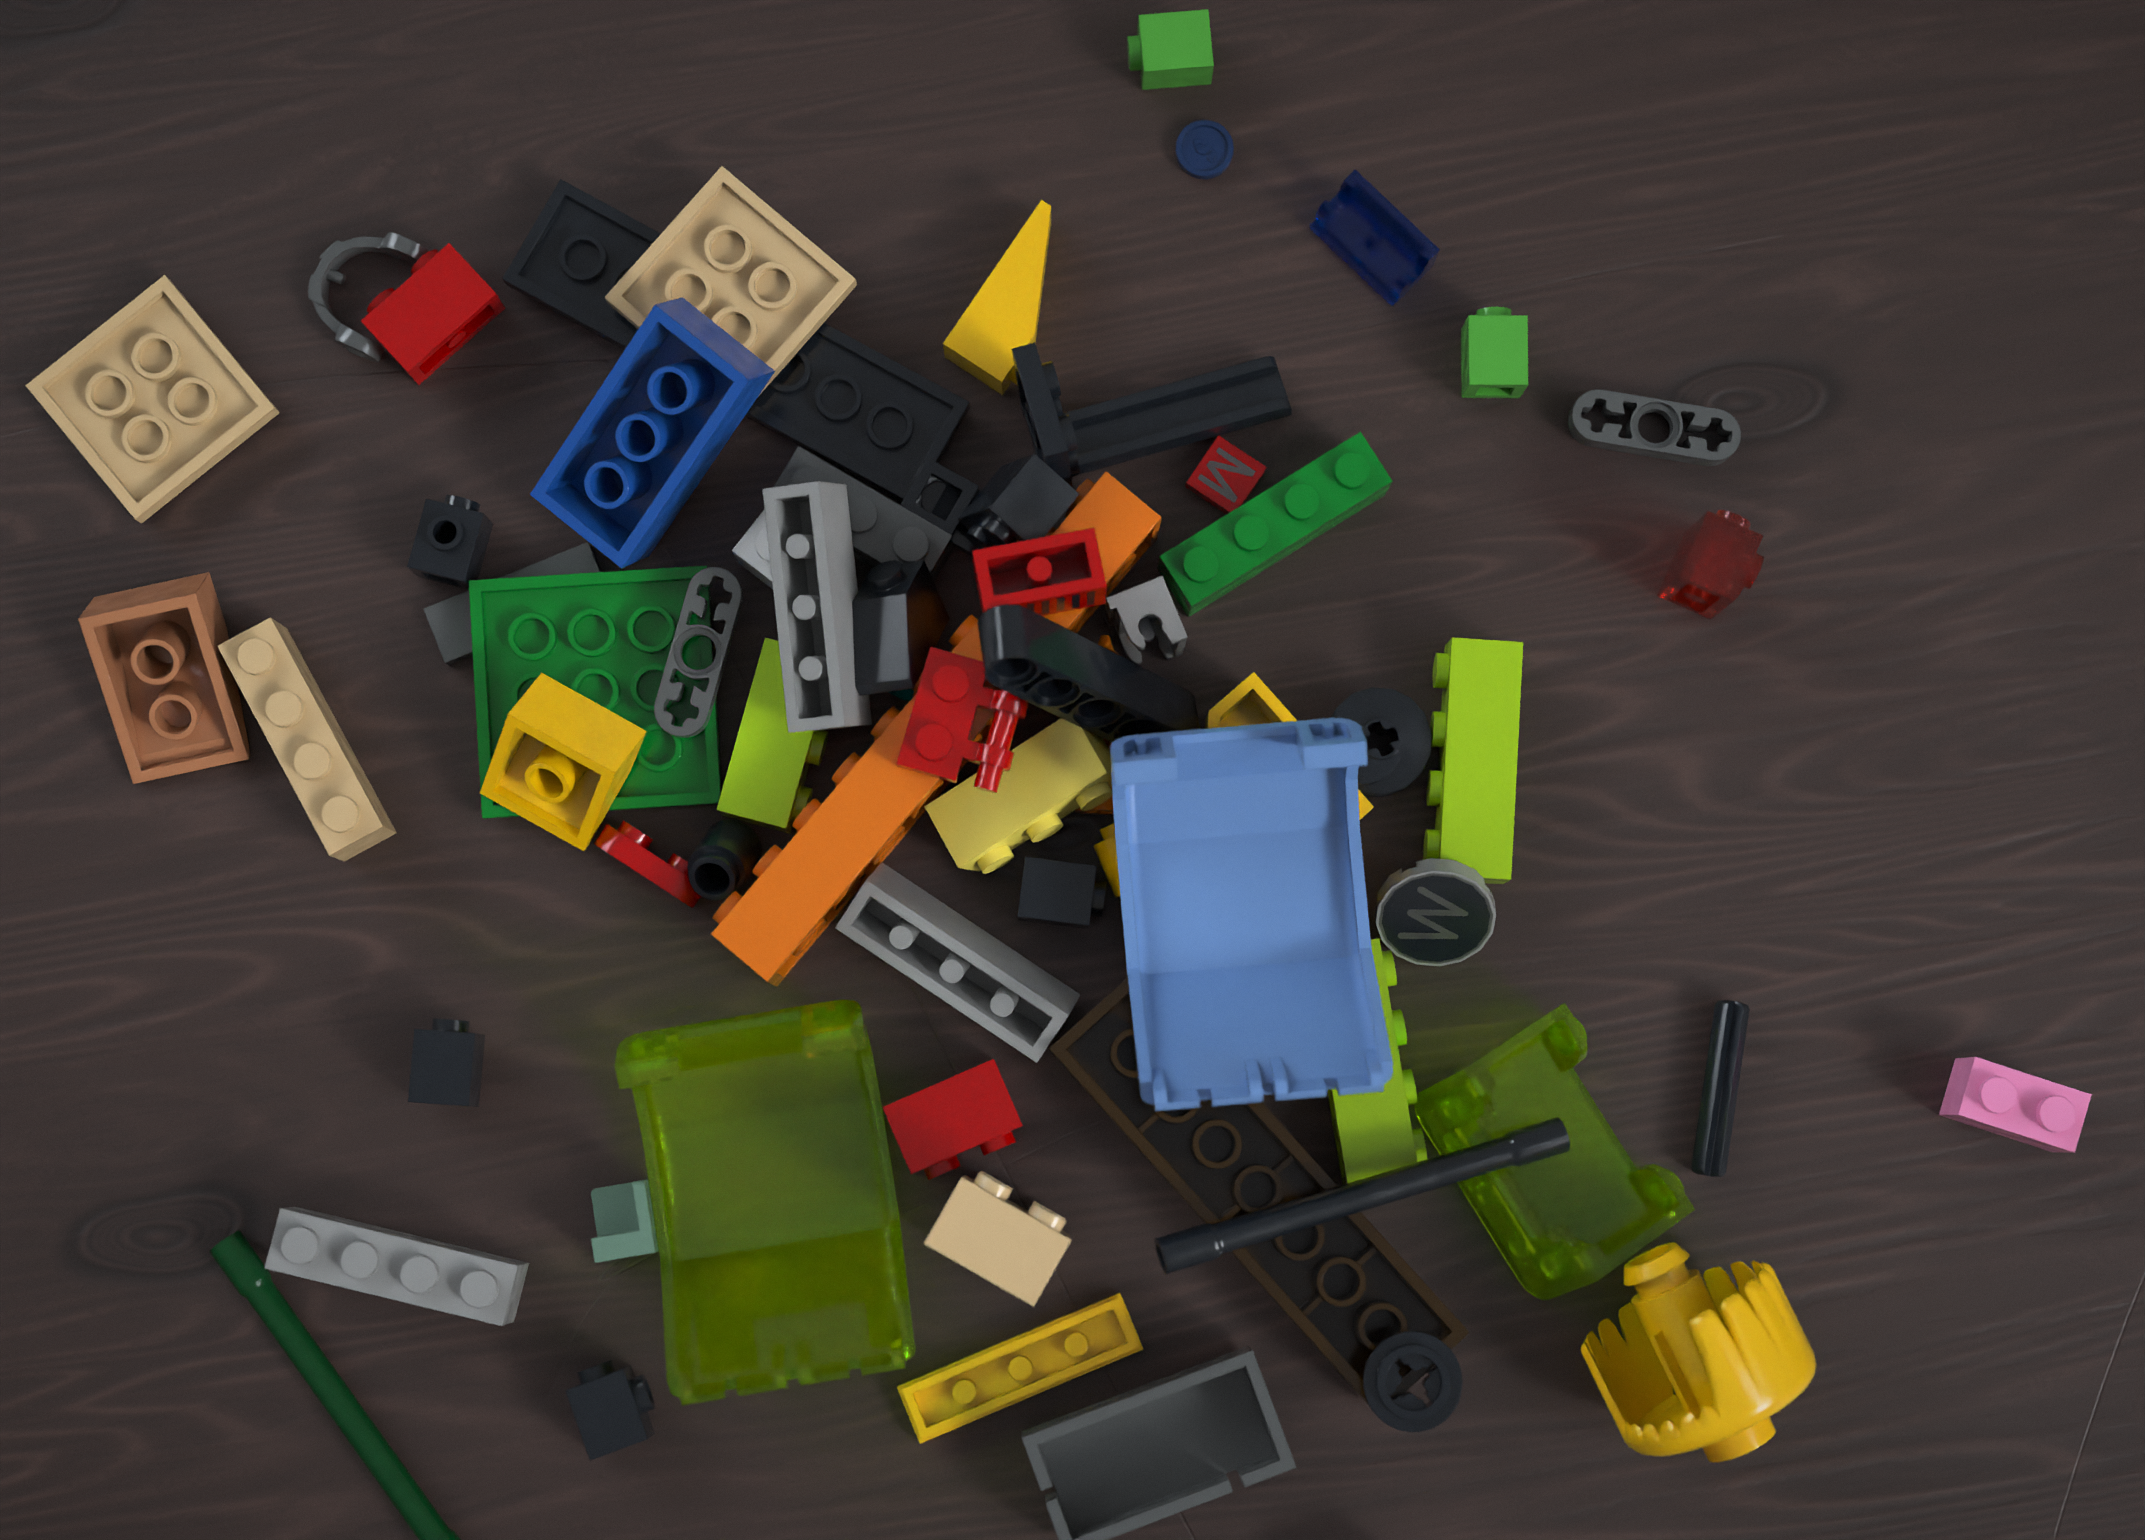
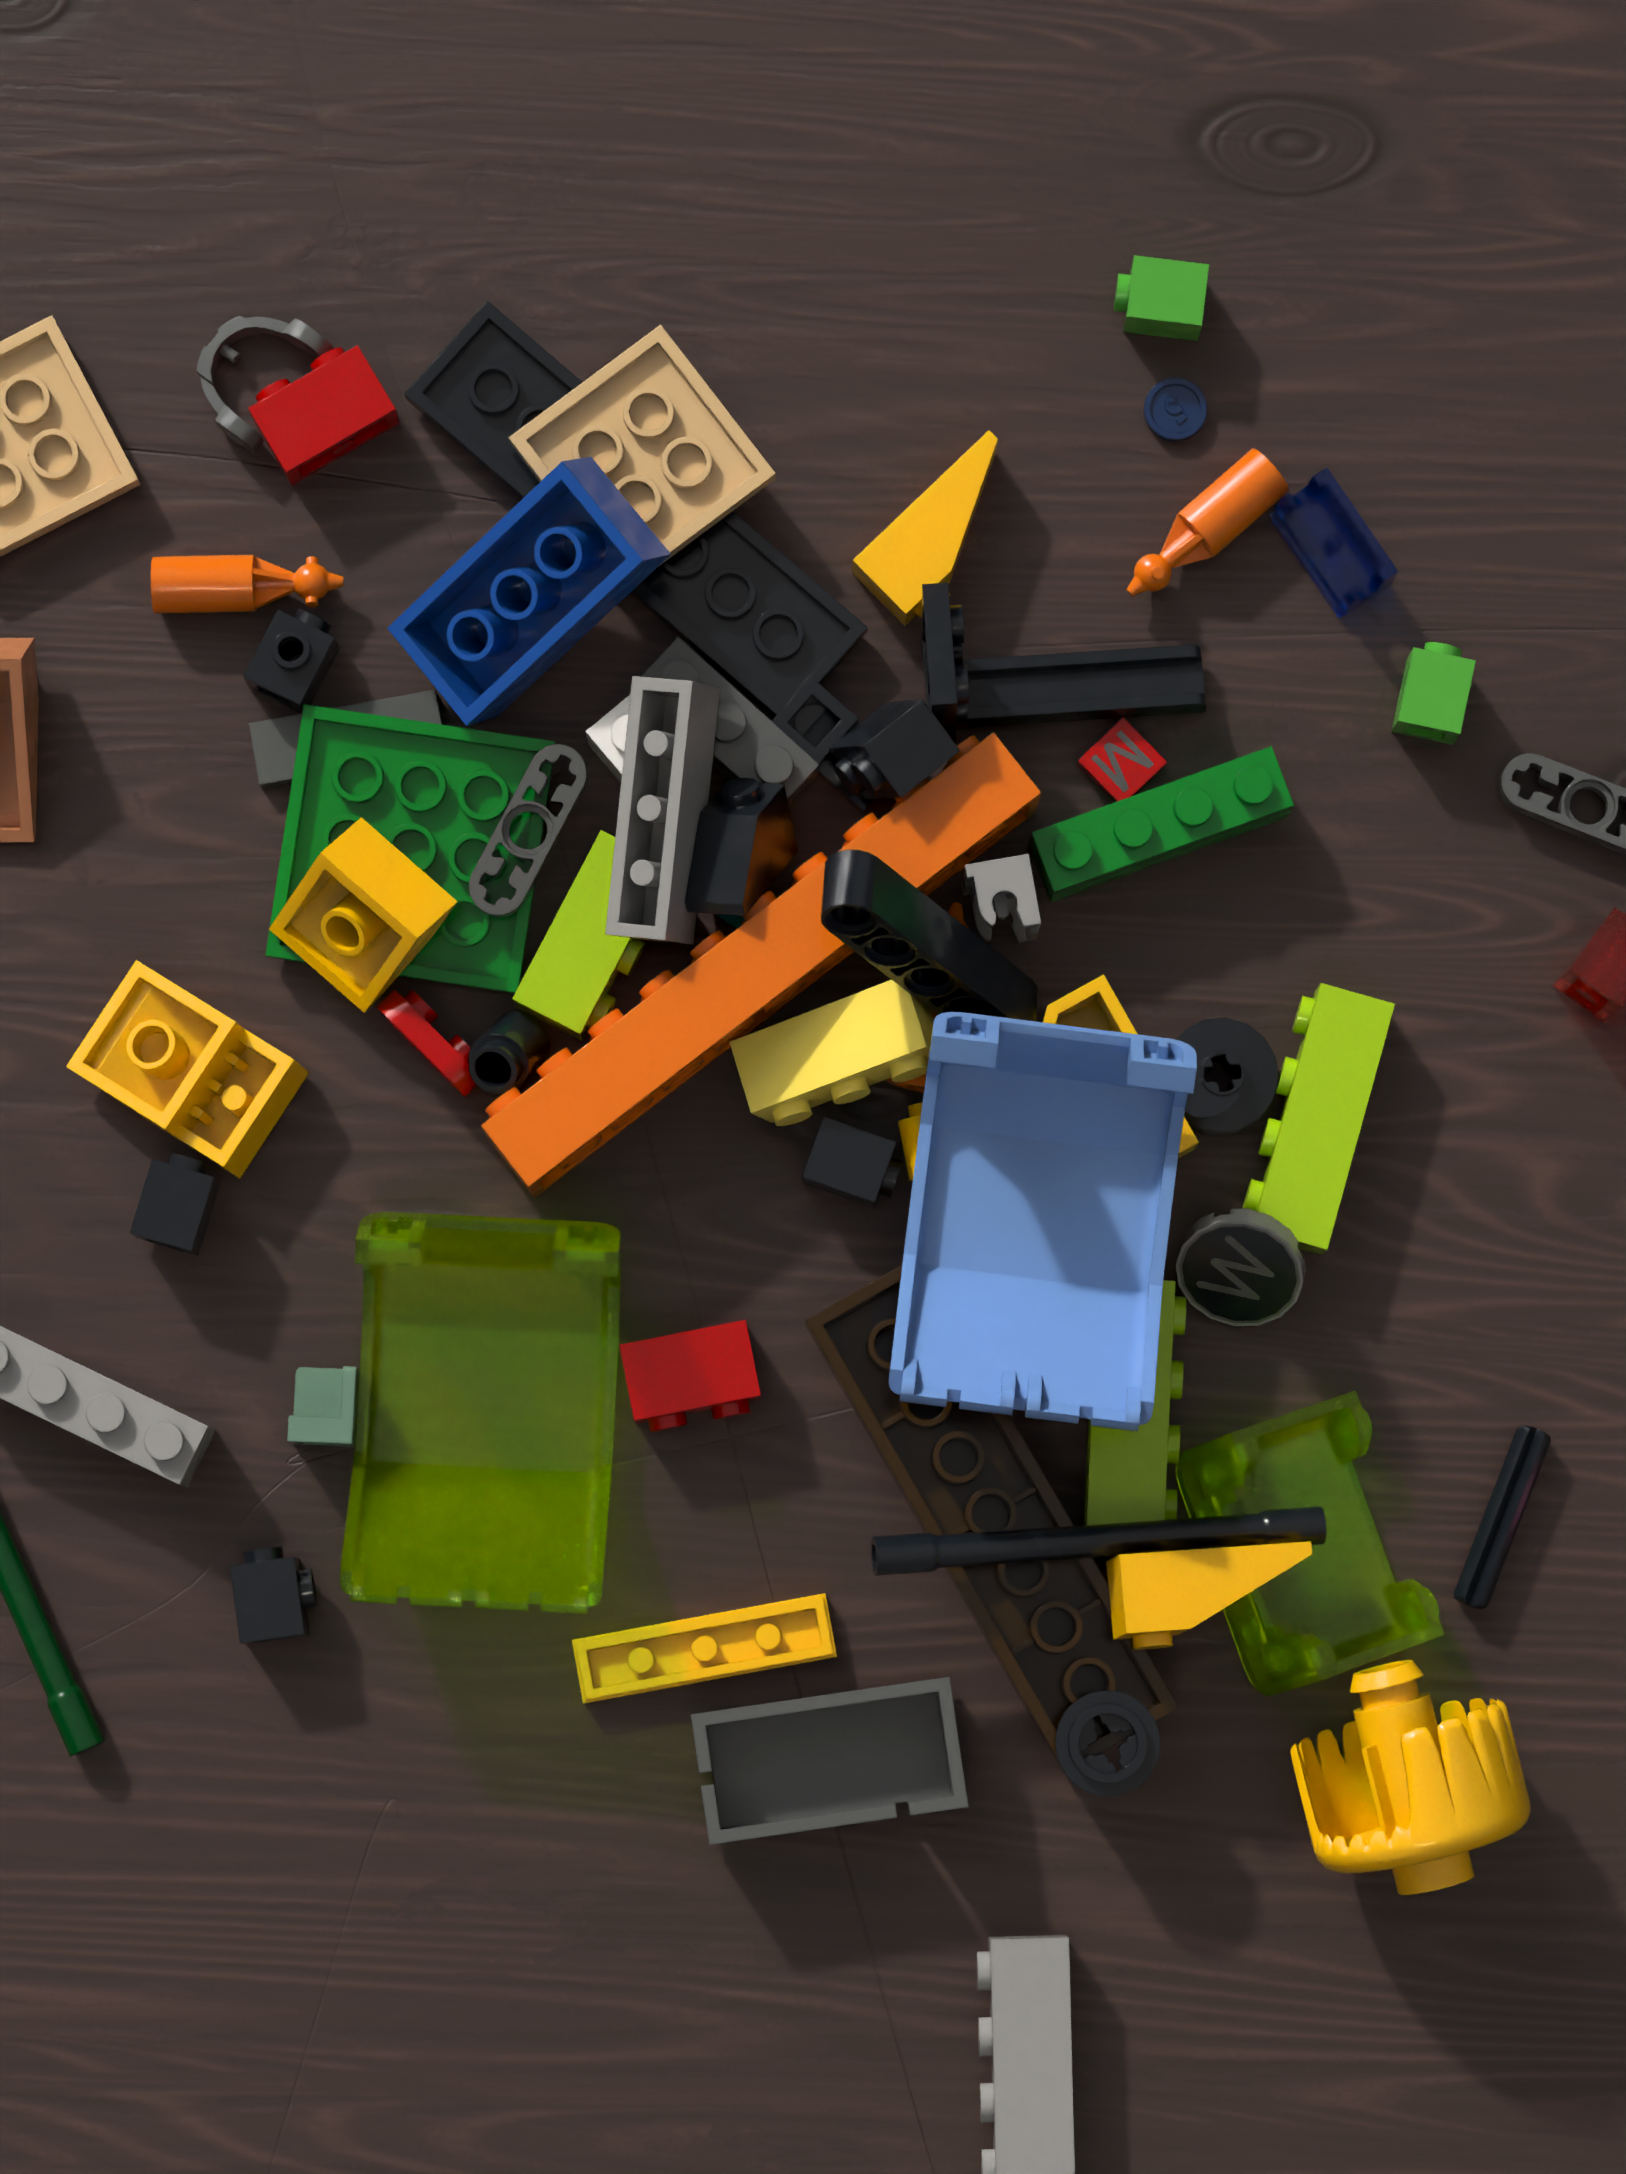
camera: 15 degrees right, 0 degrees up
(307, 739) = (100, 835): tan brick -> none
(381, 484) = (232, 583): none -> orange wheel
(432, 937) = (188, 1069): none -> yellow slope
(944, 717) = (769, 953): red plate -> none
(958, 961) = (730, 1211): light grey brick -> none
(999, 1237) = (712, 1501): tan brick -> none
(1042, 573) = (903, 825): red brick -> none
(1261, 239) = (1213, 520): none -> orange wheel
(1456, 1222) = (1176, 1590): none -> yellow slope

